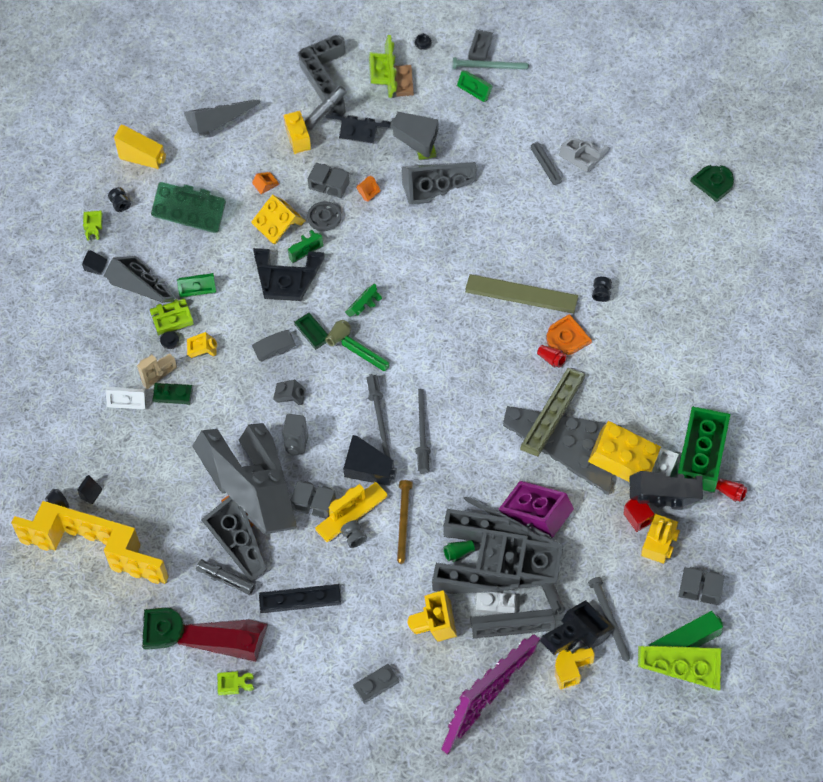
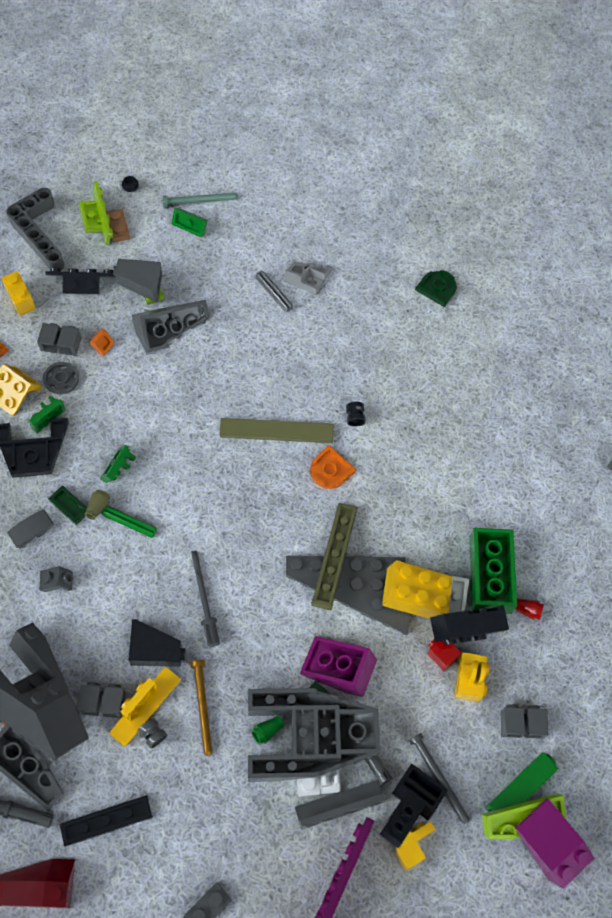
camera: 20 degrees left, 5 degrees up
(295, 434) = (69, 629): dark grey brick -> none
(329, 102) = (47, 257): dark grey pin -> none
(375, 395) = (147, 567): dark grey piece -> none
(435, 618) = (258, 818): yellow brick -> none
(480, 45) = (187, 181): dark grey plate -> none
(495, 513) = (338, 692): dark grey piece -> none
(553, 356) = (321, 493): red cone -> none
(701, 685) = (554, 844): none -> magenta slope

